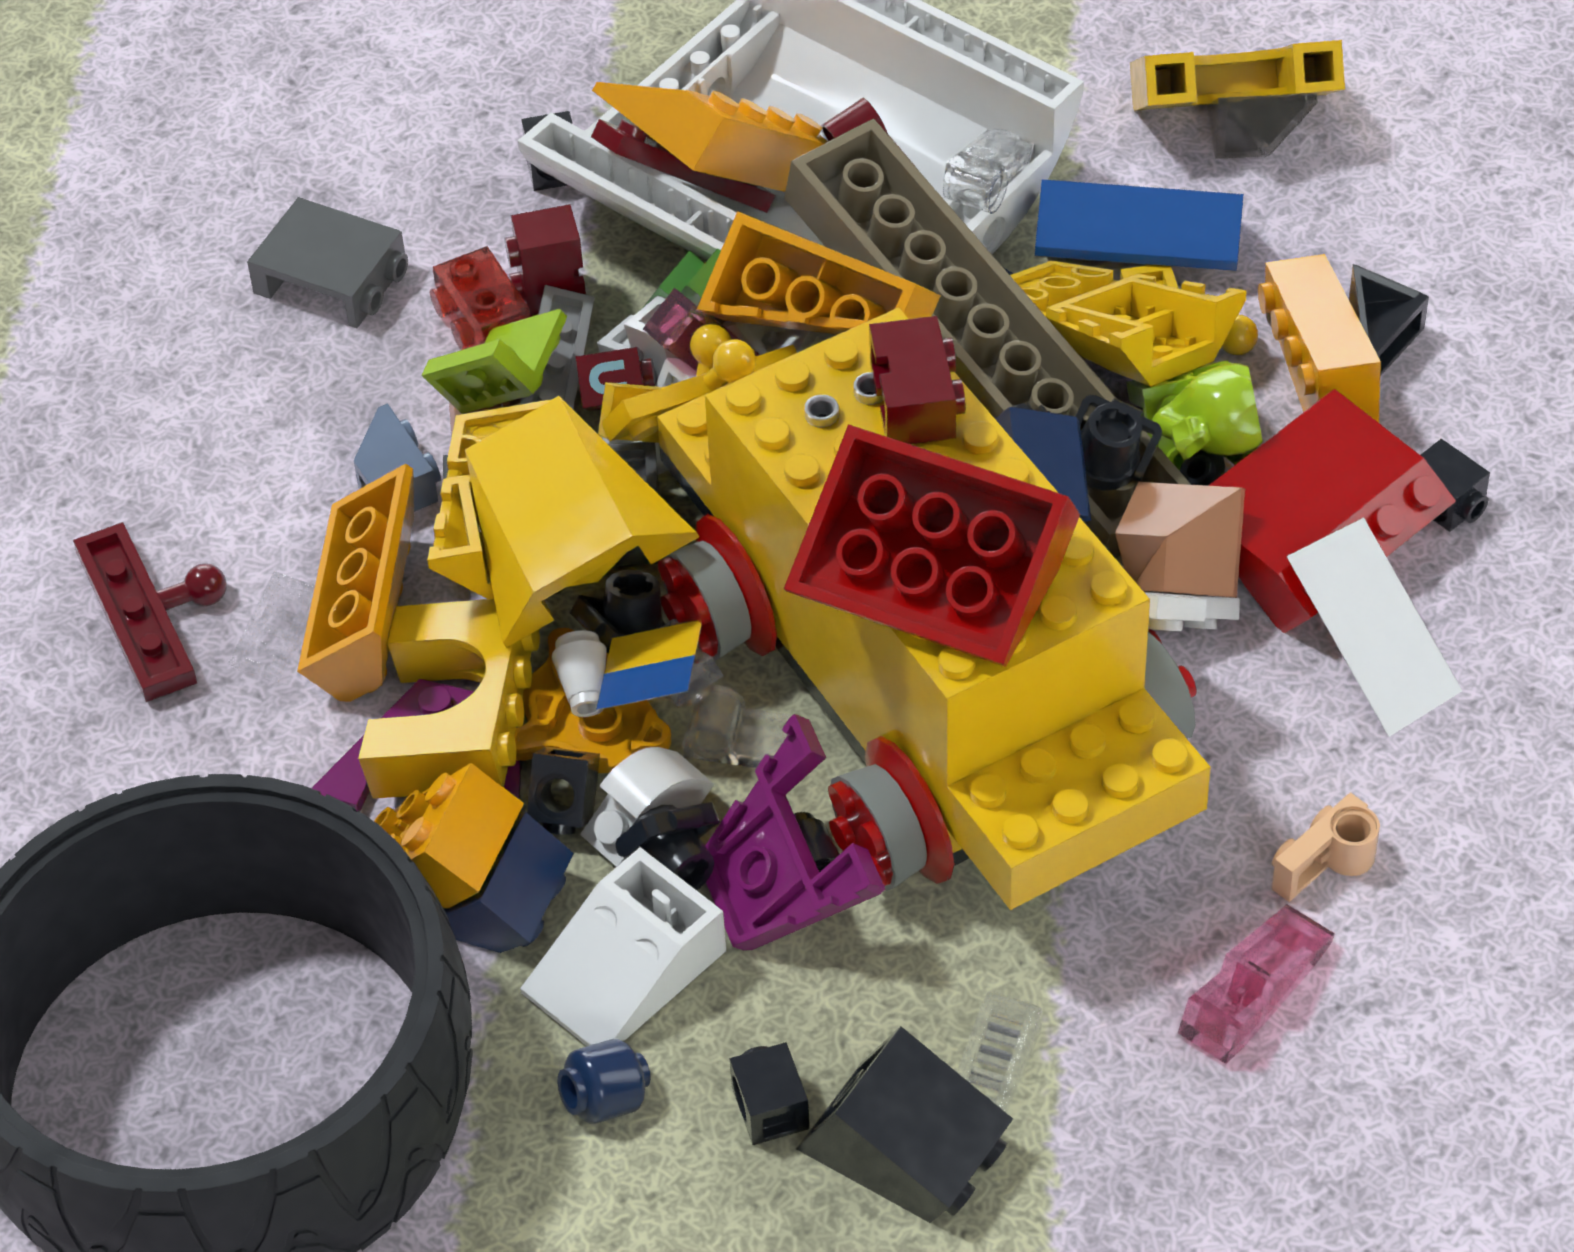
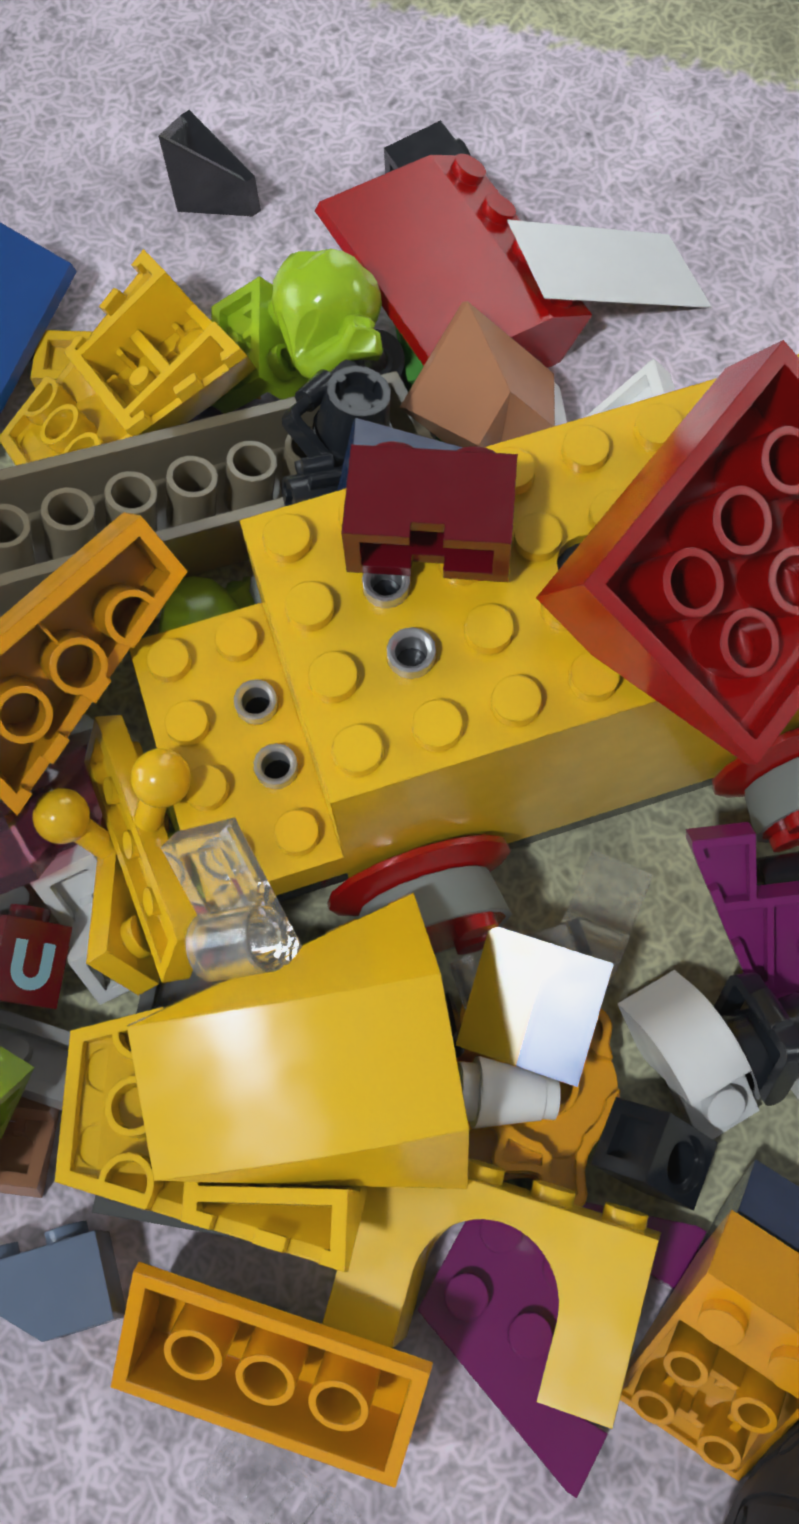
camera: 75 degrees left, 20 degrees up
(672, 401) = (238, 917): none -> clear plate
(1320, 333) = (212, 215): wedge -> none

